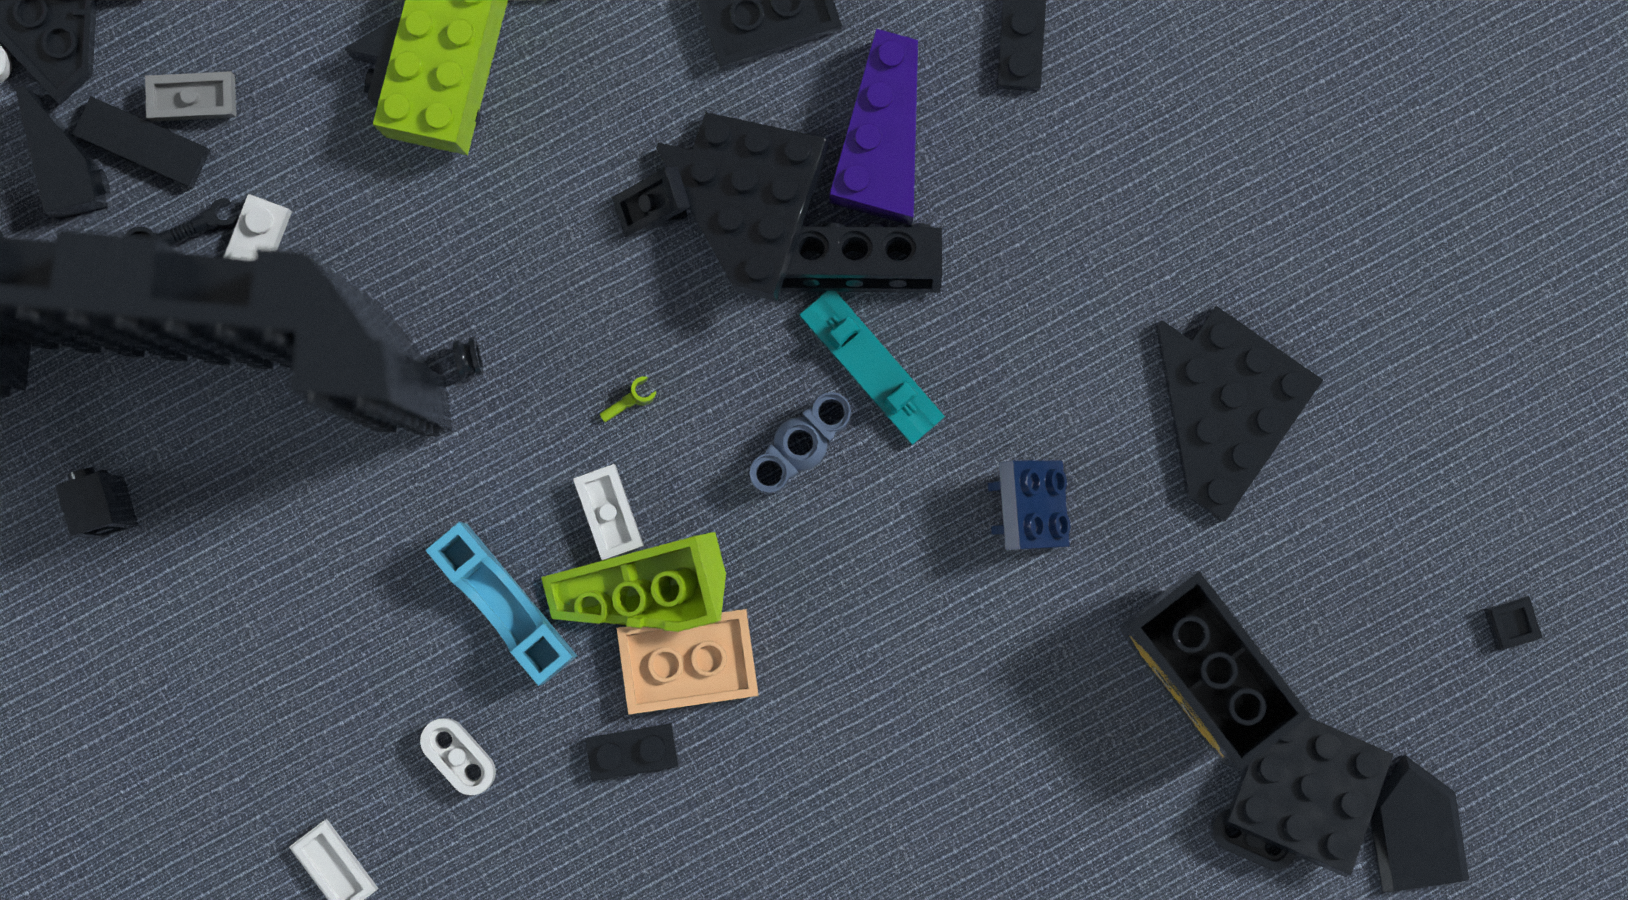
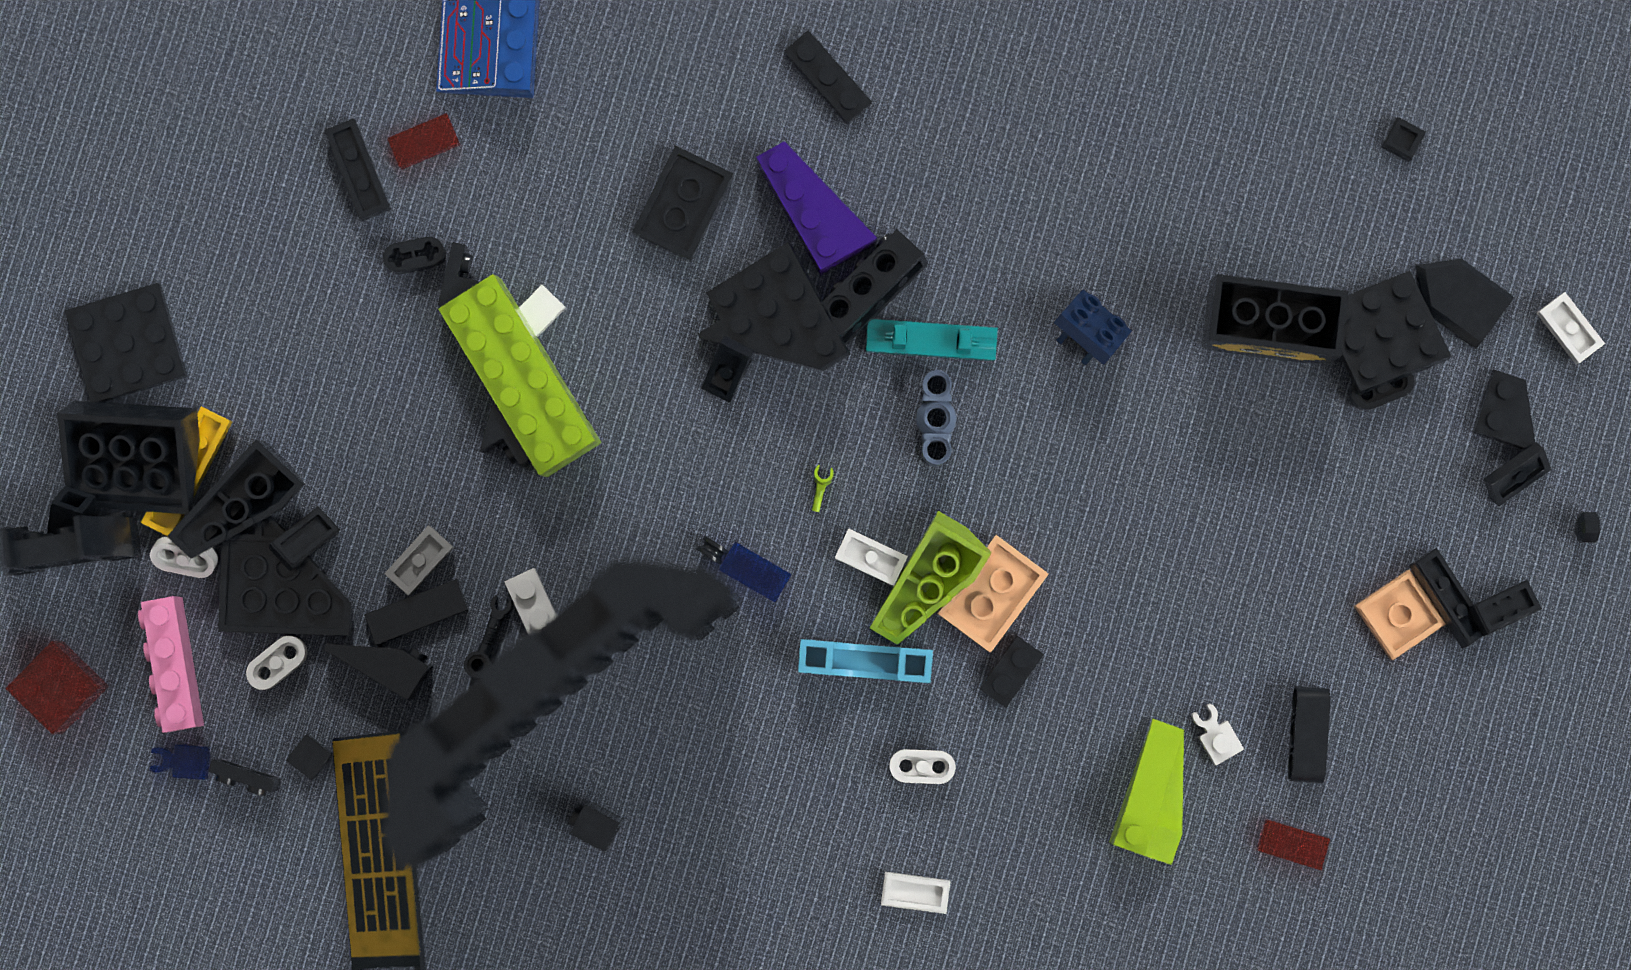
camera: 50 degrees left, 0 degrees up
(487, 417) = (755, 572): none -> clear blue plate
(1229, 405) = (1141, 172): black wing -> none

